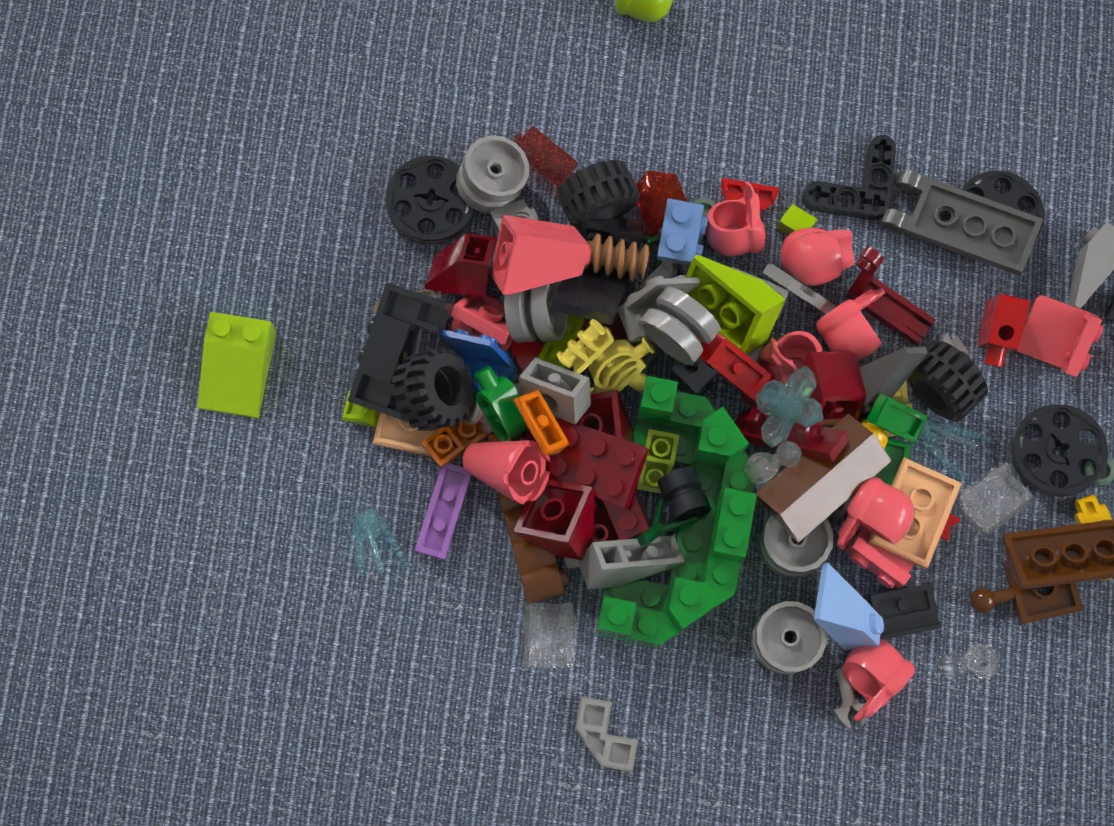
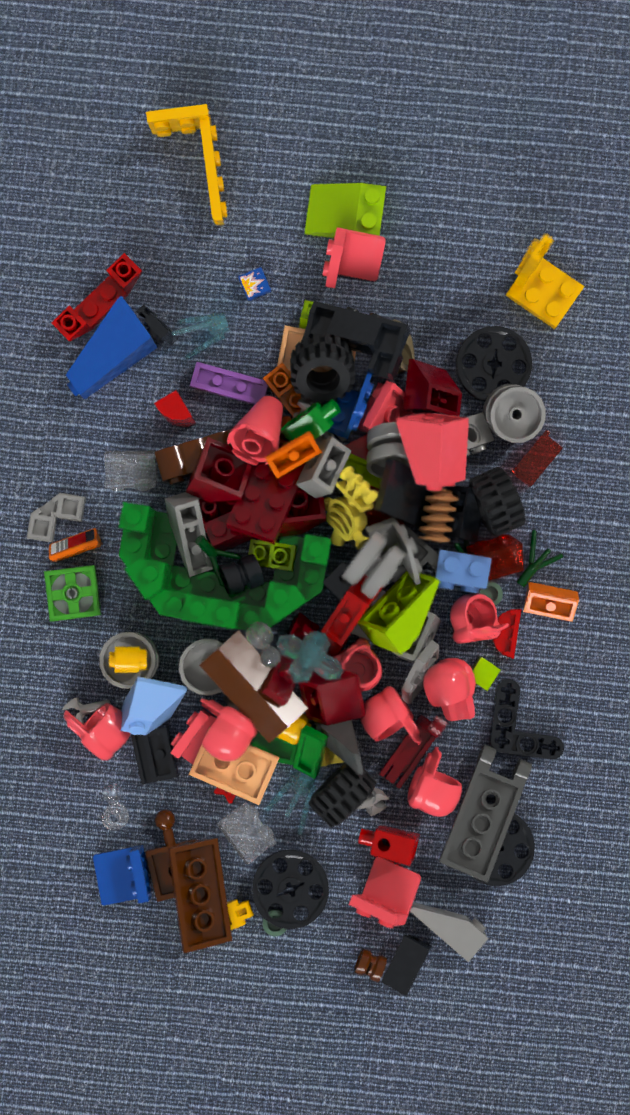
camera: 95 degrees right, 10 degrees up
(108, 554) = (188, 120): none -> yellow bracket
(292, 354) = (354, 256): none -> coral bracket
(318, 479) = (254, 284): none -> tile
(329, 671) = (94, 308): none -> red slope
(340, 140) = (542, 286): none -> yellow bracket
(372, 593) = (157, 327): none -> black plate
(391, 649) = (110, 351): none -> blue slope
(477, 573) = (175, 410): none -> red brick
(641, 710) = (74, 545): none -> slope
(673, 164) = (538, 564): none -> dark green plant
(703, 712) = (72, 593): none -> bright green piece
(712, 145) = (551, 601): none -> orange slope
(792, 631) = (128, 659): none -> yellow brick
(935, 281) = (432, 790): none -> coral piece
(1053, 653) = (123, 875): none -> blue bracket

